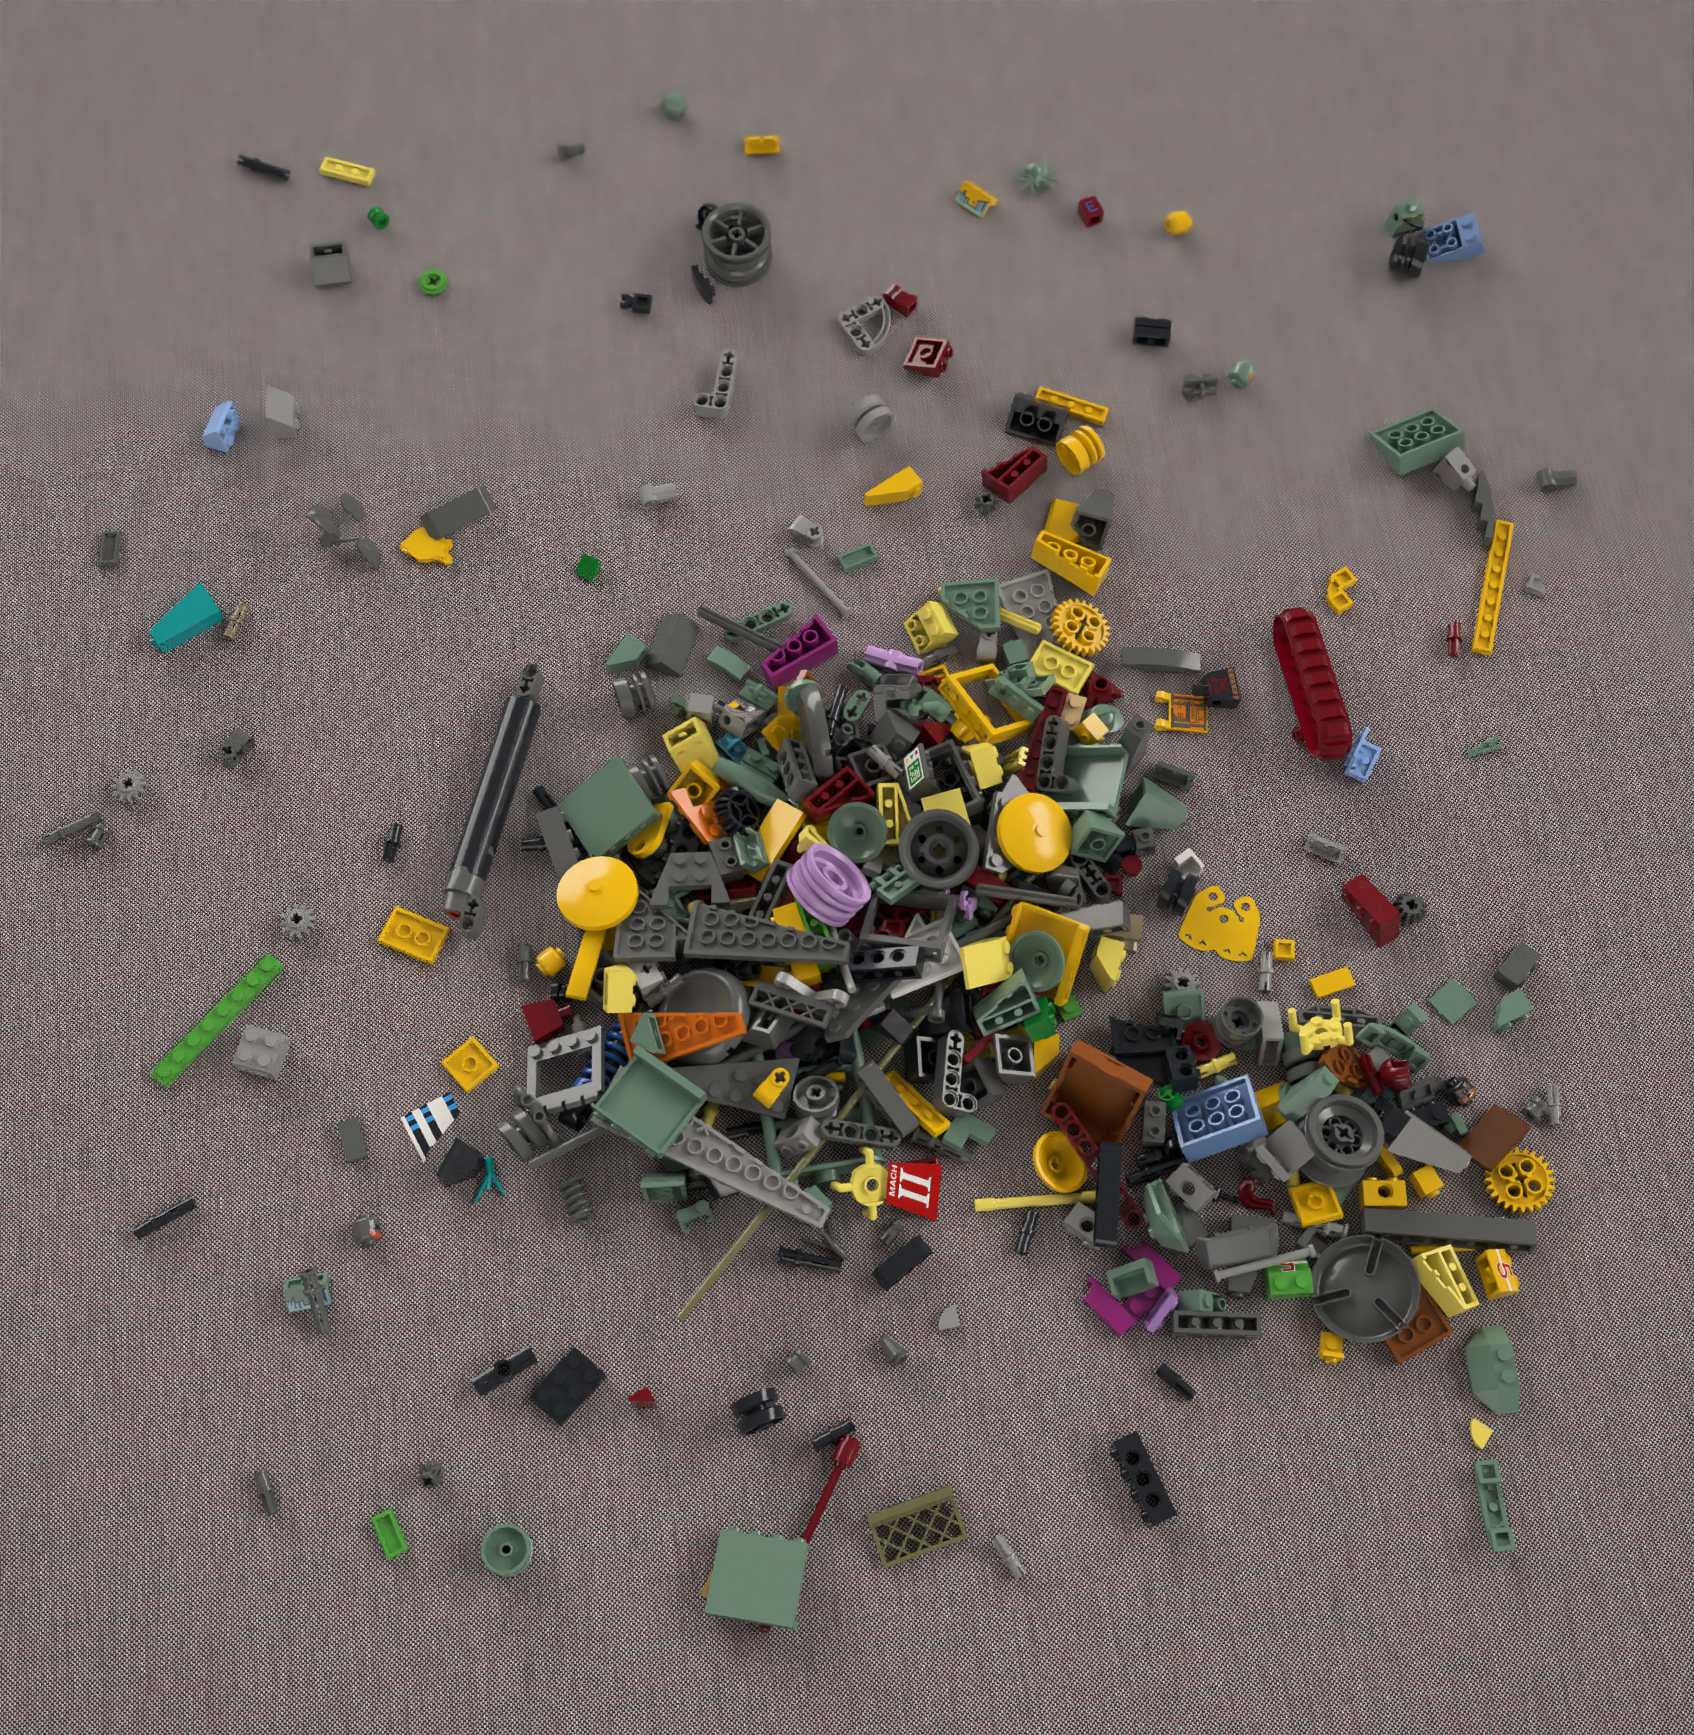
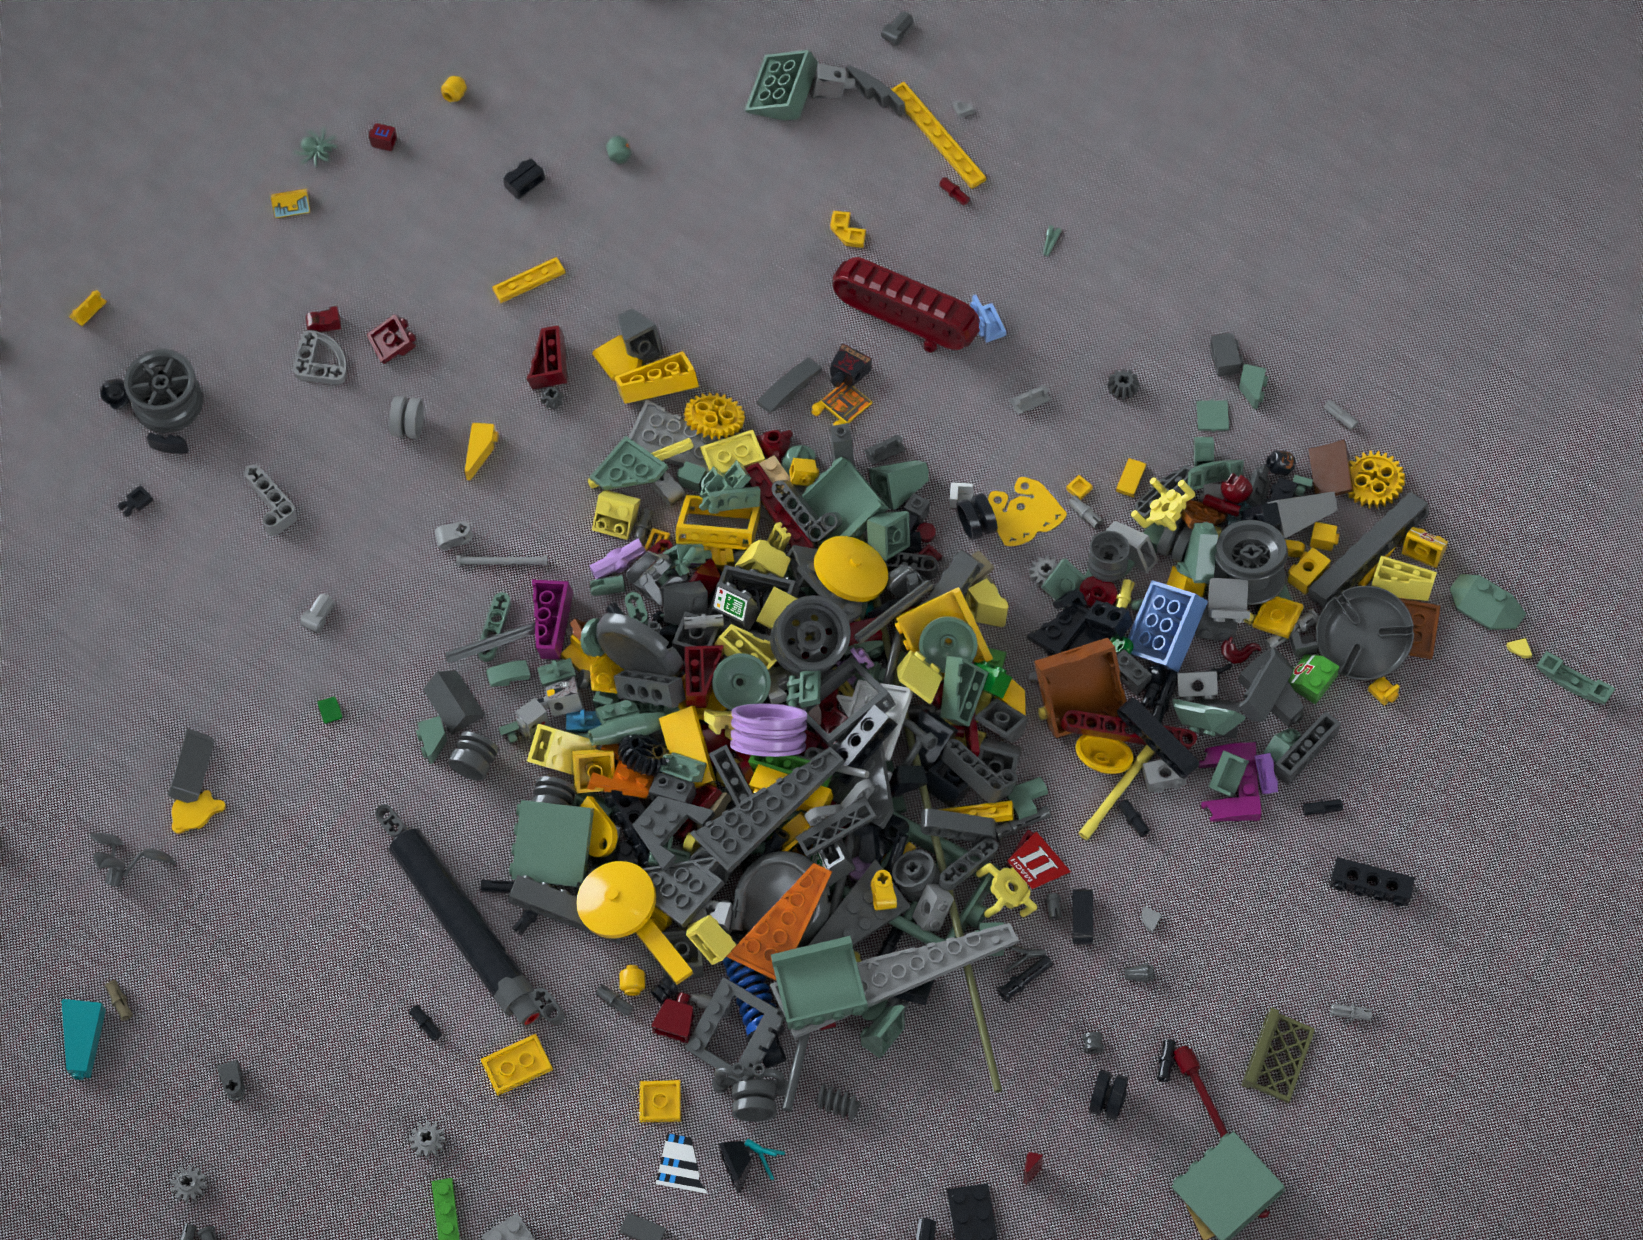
camera: 45 degrees left, 5 degrees down
(648, 1034) = (768, 944): sand green slope -> none
(693, 1212) = (920, 1029): sand green piece -> none
(857, 557) = (508, 518): sand green tile -> none
(1037, 419) = (518, 309): black slope -> none
(1080, 450) = (574, 301): yellow wheel -> none
(1199, 385) = (600, 184): dark grey hips -> none
(1260, 1264) = (1275, 716): light grey bar -> none
(1372, 910) = (1103, 407): dark red wedge -> none
(1535, 1110) = (1334, 428): dark grey wheel -> none

